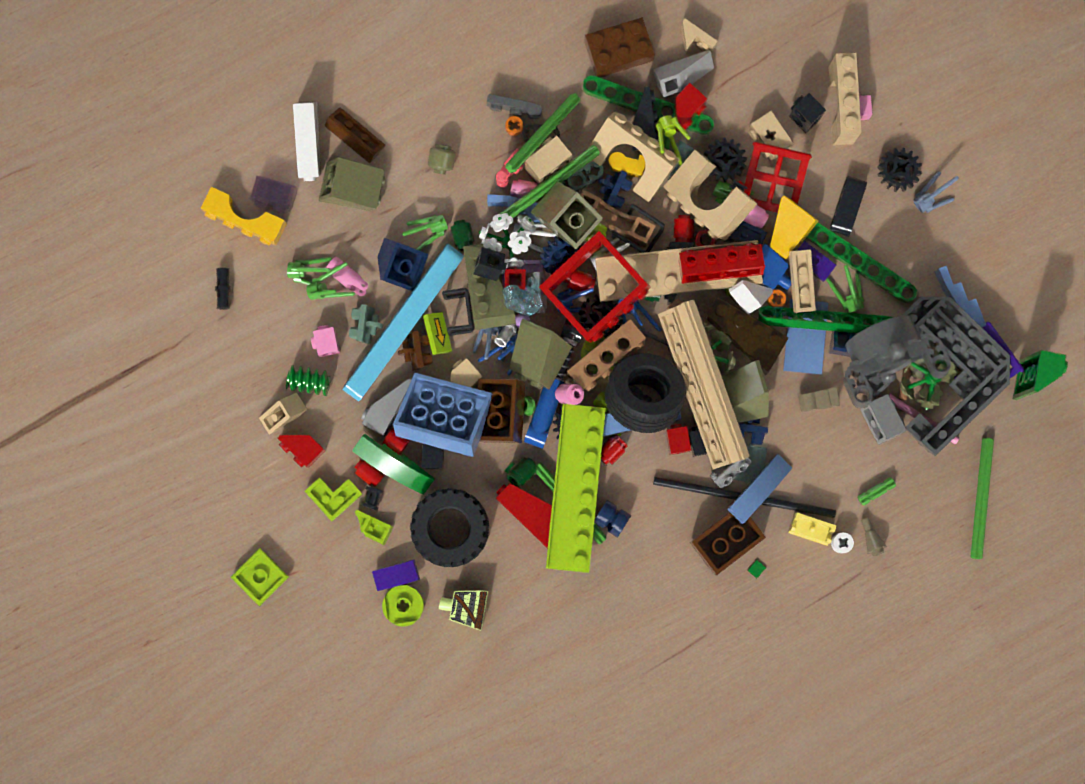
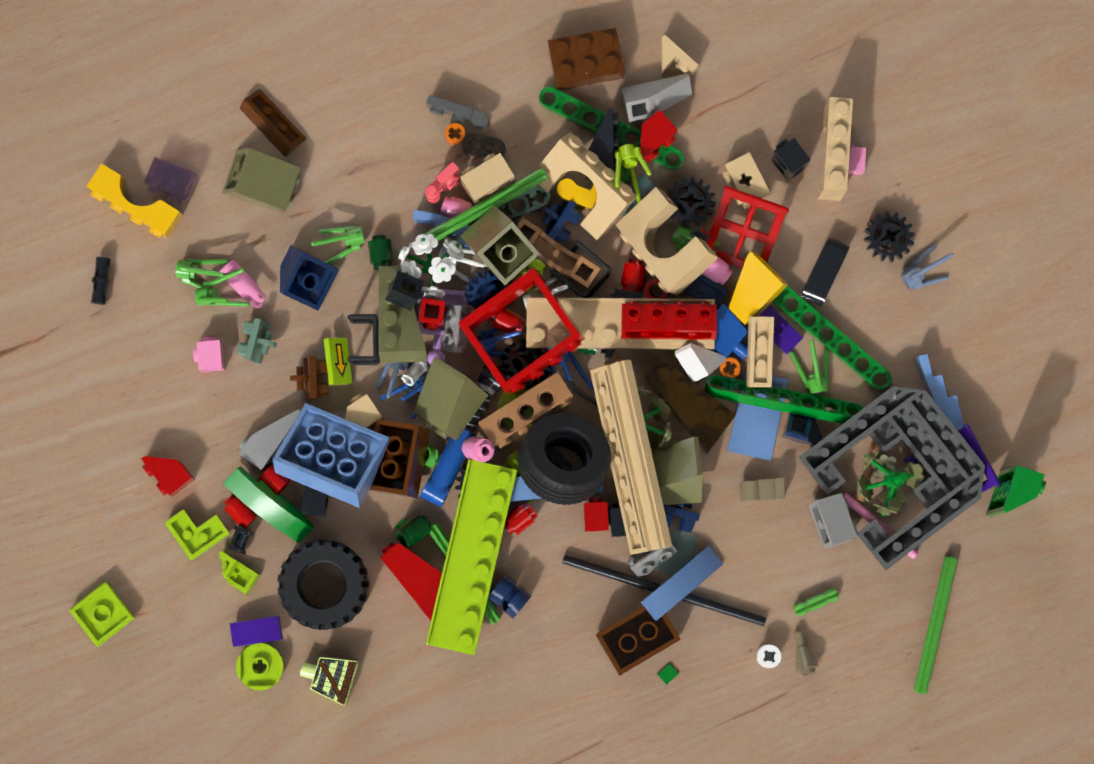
camera: 10 degrees right, 0 degrees up
(282, 413) = (151, 431): tan slope -> none
(307, 140) = (217, 122): white slope -> none
(308, 381) = (184, 397): green piece -> none
(403, 322) = (300, 344): medium azure beam -> none
(441, 158) = (367, 162): olive head -> none
(522, 300) = (436, 336): clear light blue leg -> none
(542, 133) = (484, 147): bright green axle -> none
(812, 529) = (736, 636): light yellow hinge -> none
(888, 349) = (842, 443): dark grey piece -> none

